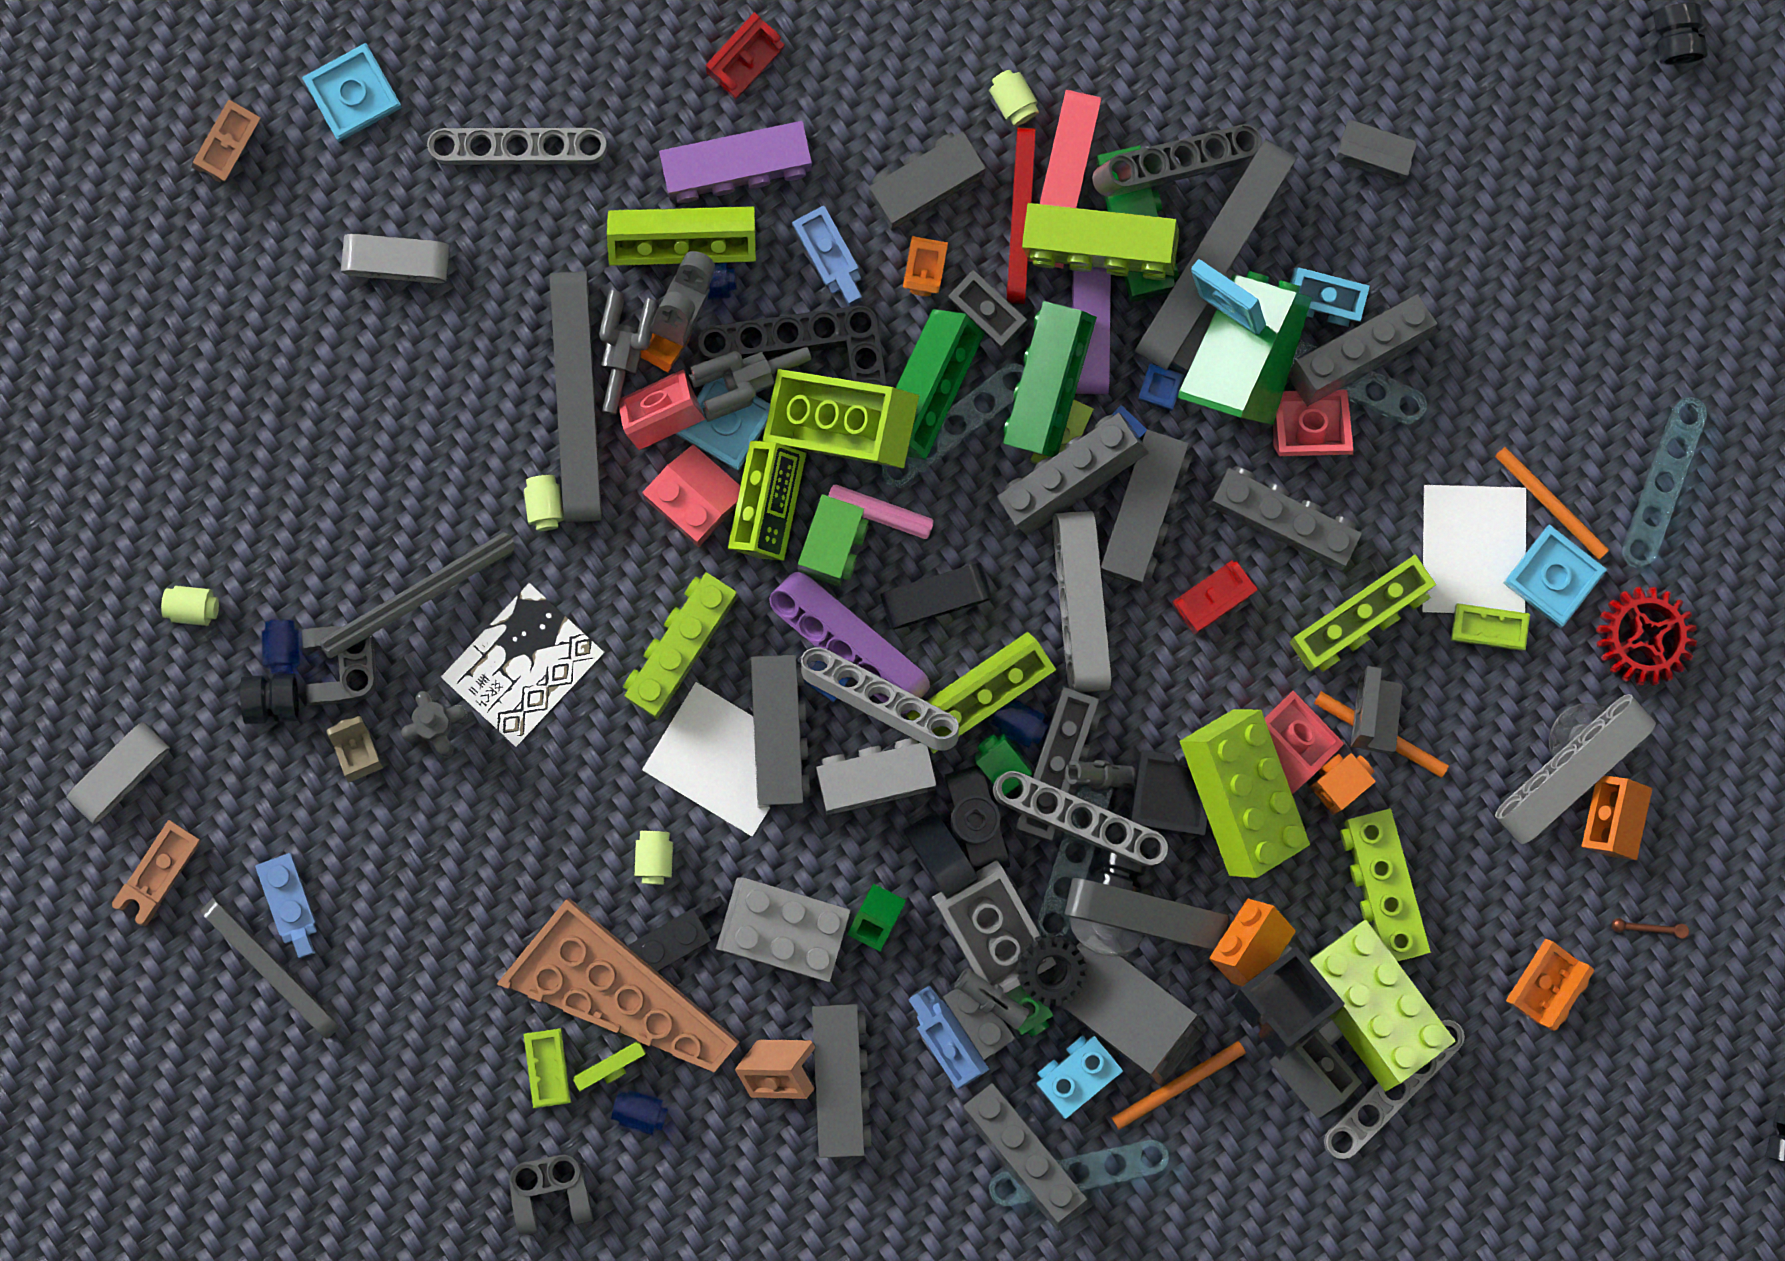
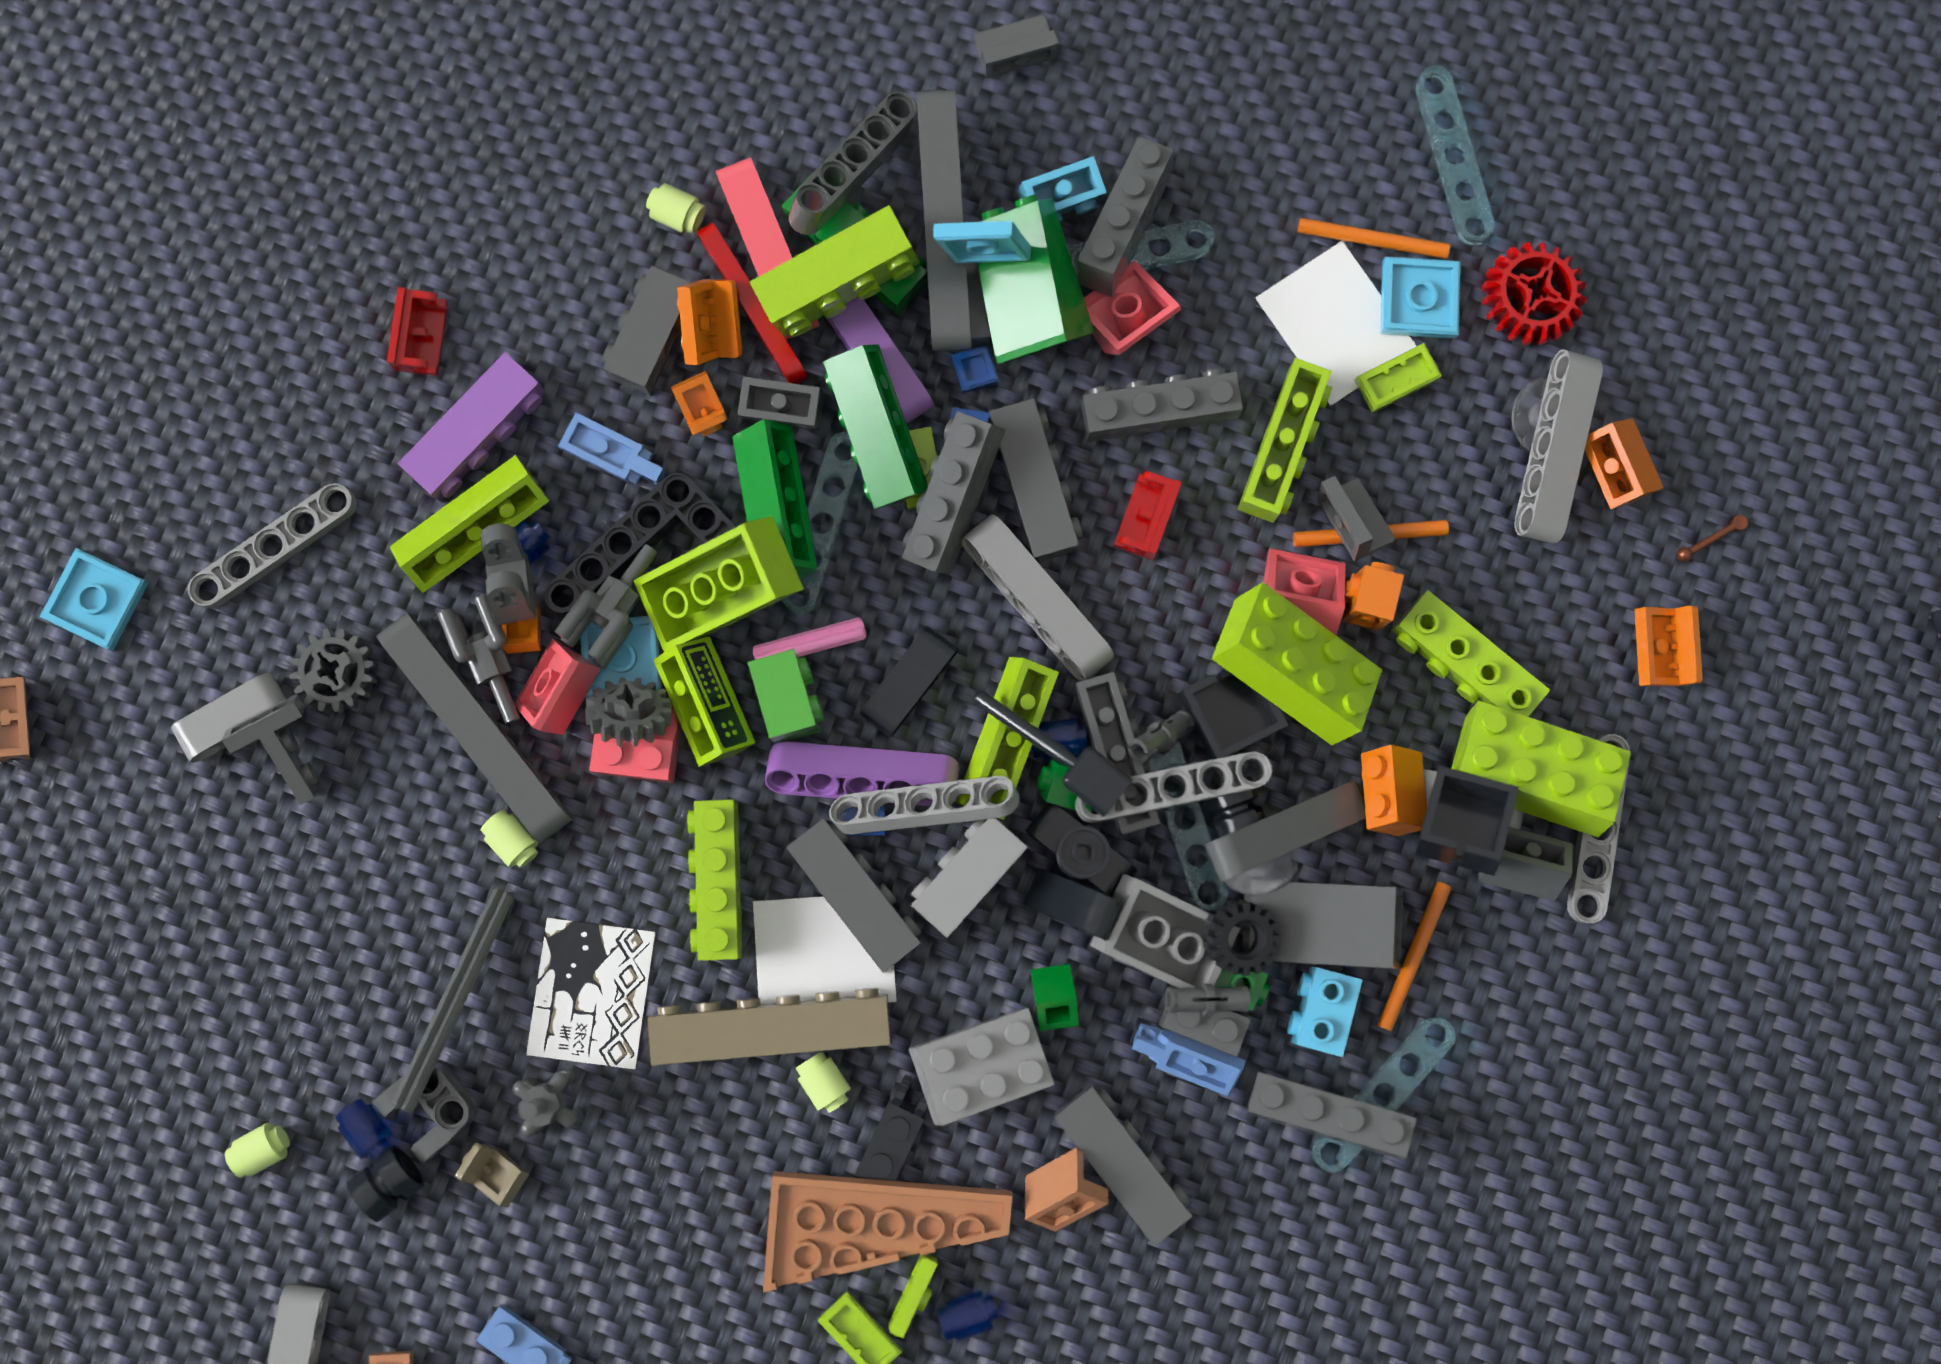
camera: 30 degrees left, 0 degrees up
(421, 307) = (279, 744): none -> dark grey bracket
(482, 276) = (318, 677): none -> dark grey gear
(641, 787) = (769, 1028): none -> dark tan brick
(704, 468) = (628, 711): none -> dark grey gear
(978, 206) = (709, 320): none -> orange bracket
(1022, 763) = (1089, 776): none -> black piece

